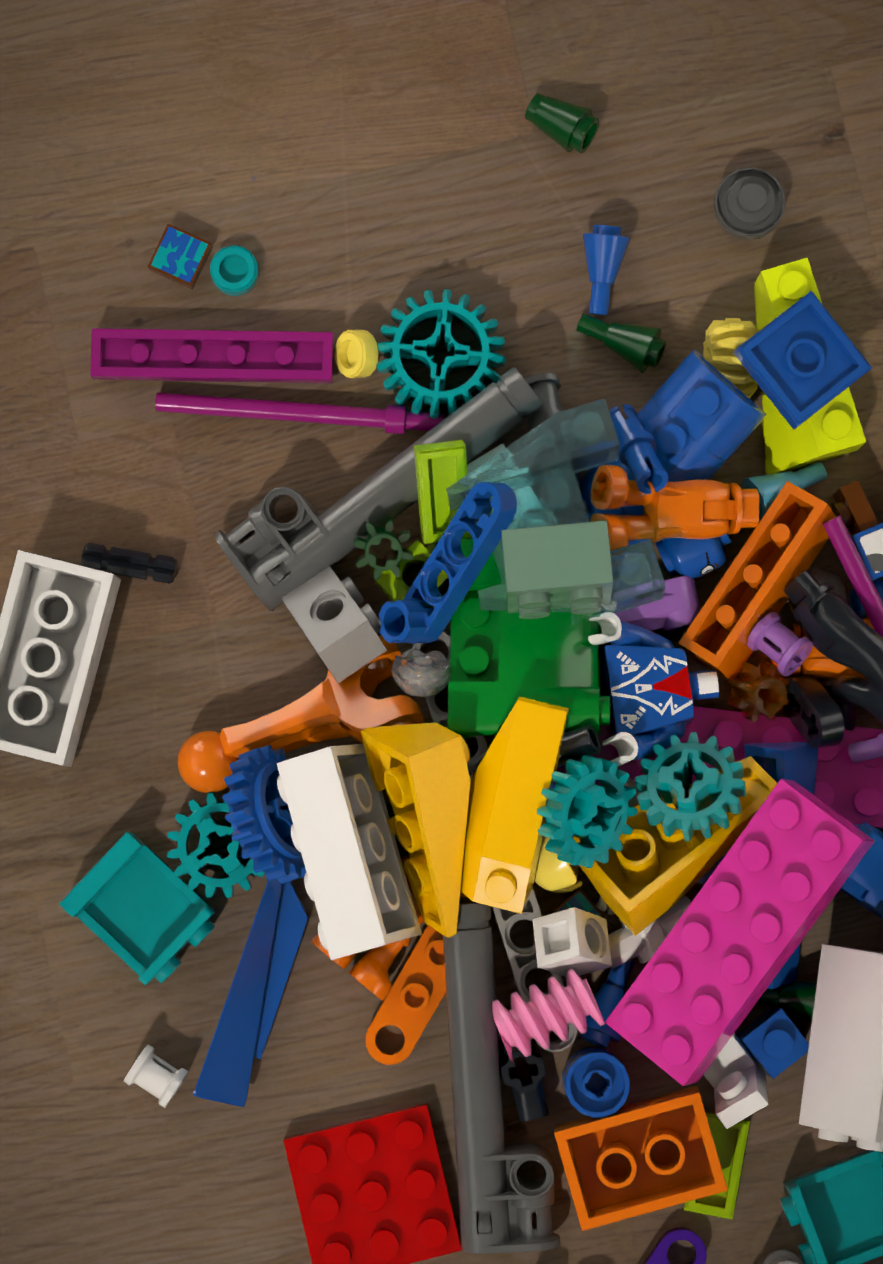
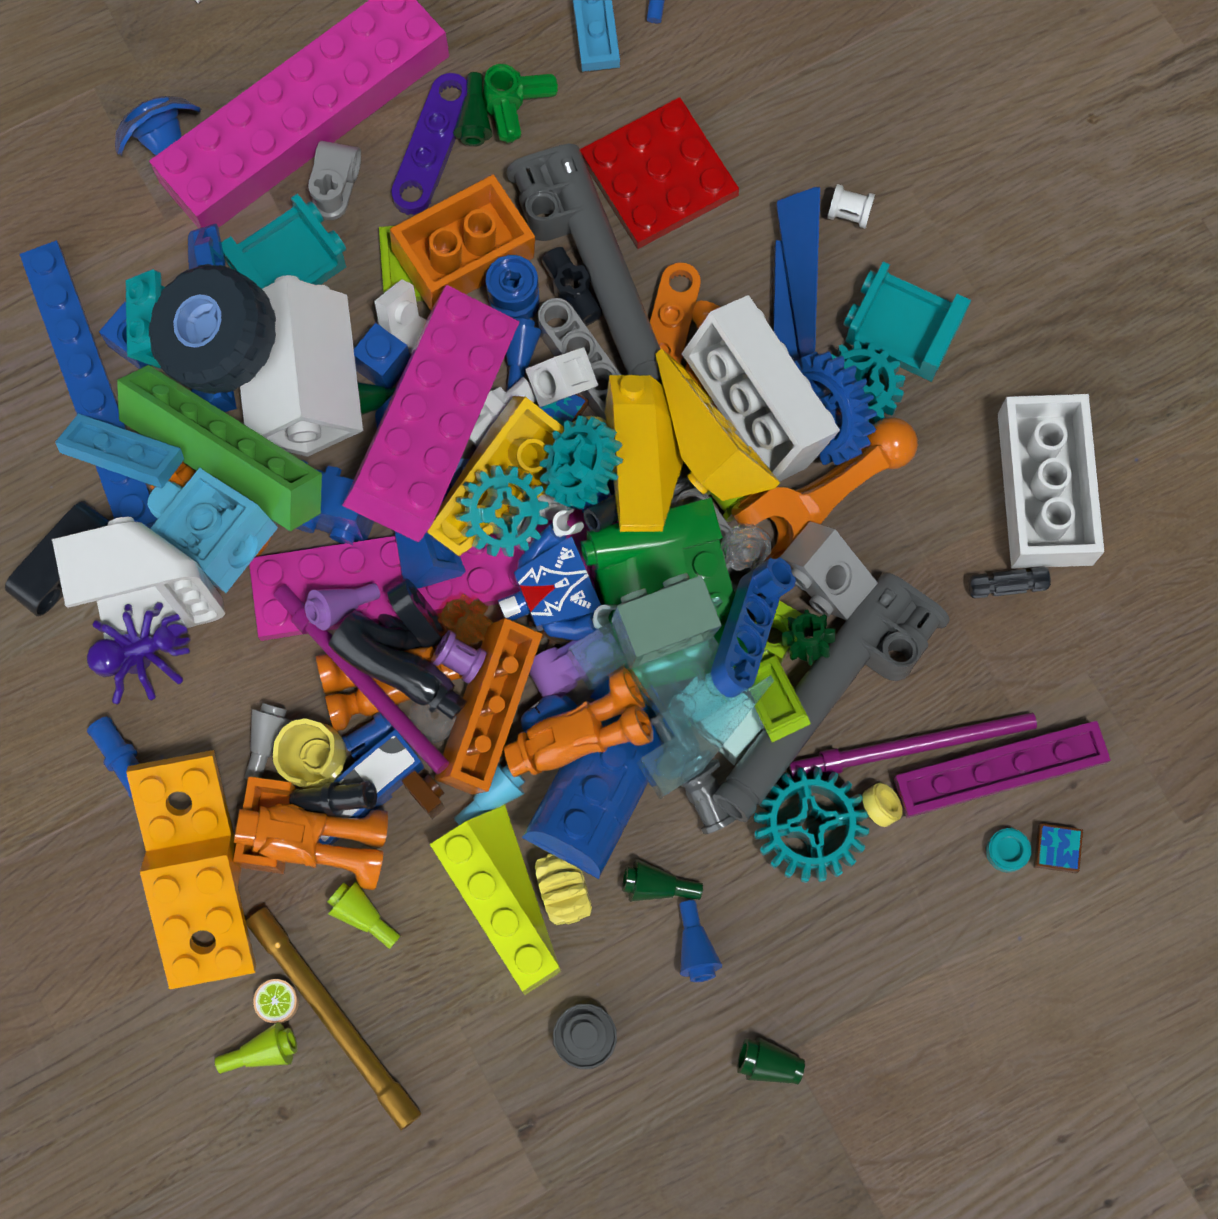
camera: 165 degrees right, 10 degrees down
(546, 1013) = (565, 314): bright pink piece -> none
(638, 450) = (624, 770): blue pin -> none
(802, 360) = (503, 892): blue tile -> none

